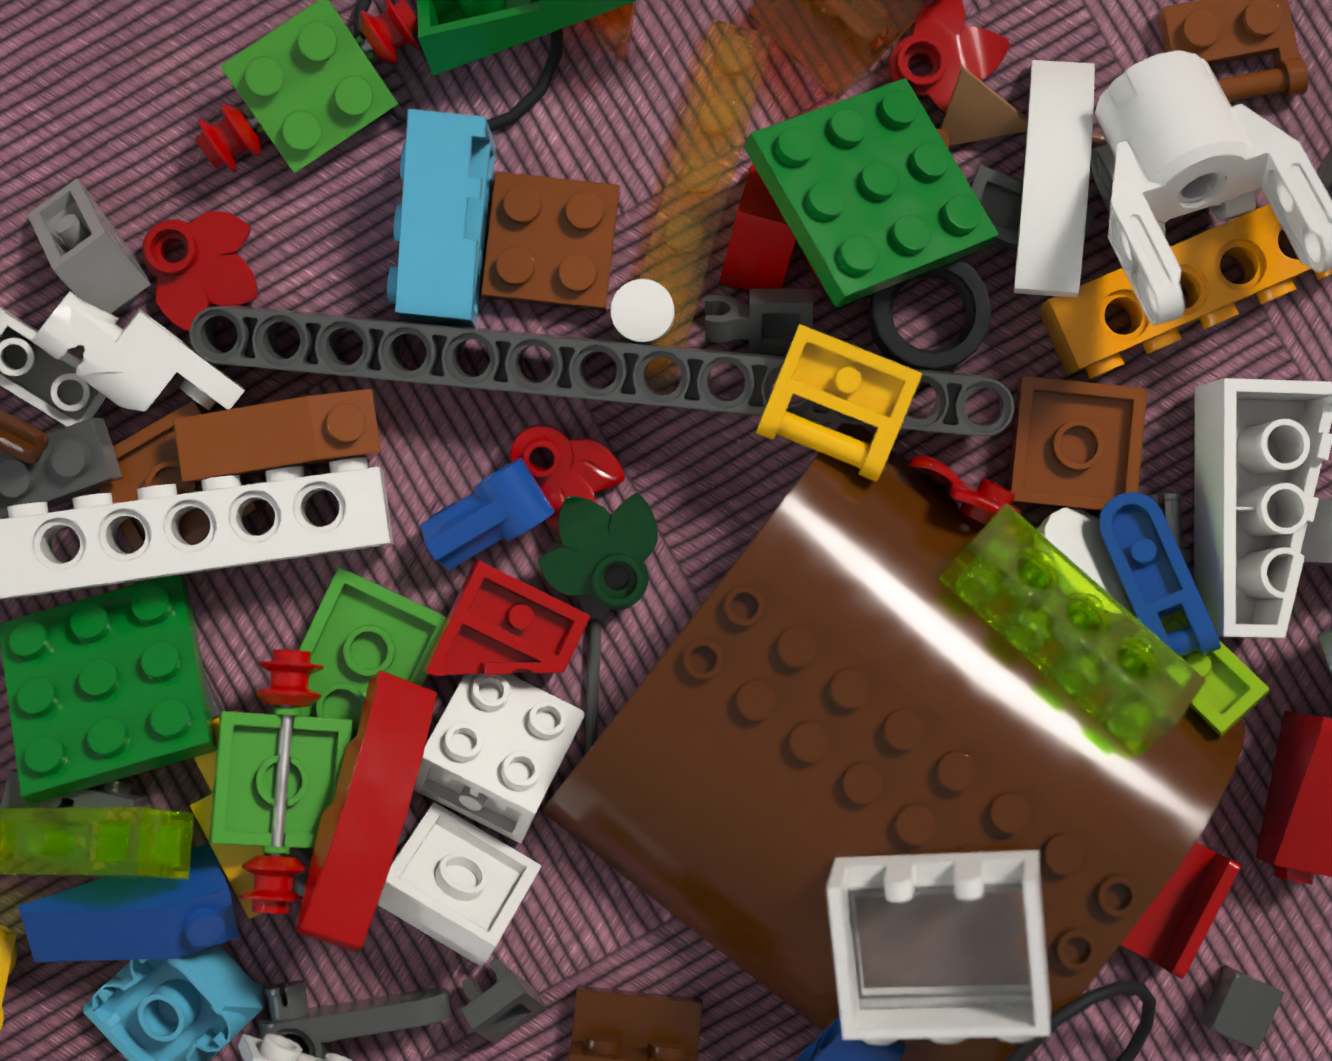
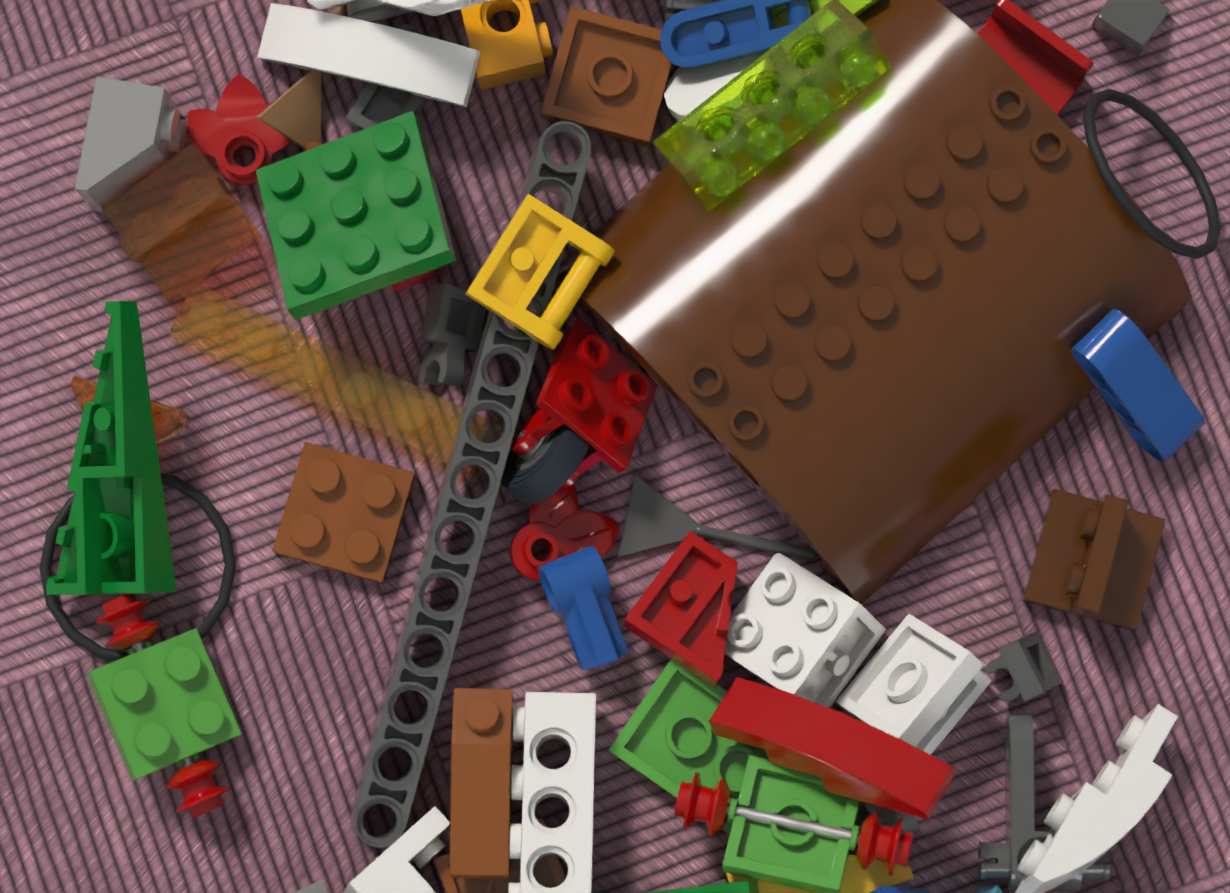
camera: 70 degrees left, 5 degrees down
(208, 270) = (317, 830): red plate -> none
(442, 218) = (311, 604): medium azure wedge -> none
(597, 541) = (626, 515): dark green plate -> none
(642, 311) = (425, 436): white tile -> none
(694, 478) = (586, 414): none -> red plate
(759, 241) = (376, 324): red slope -> none
(940, 947) = (1027, 259): window -> none
(975, 328) = (500, 154): black tyre -> none
(978, 502) = (647, 168): red plate -> none

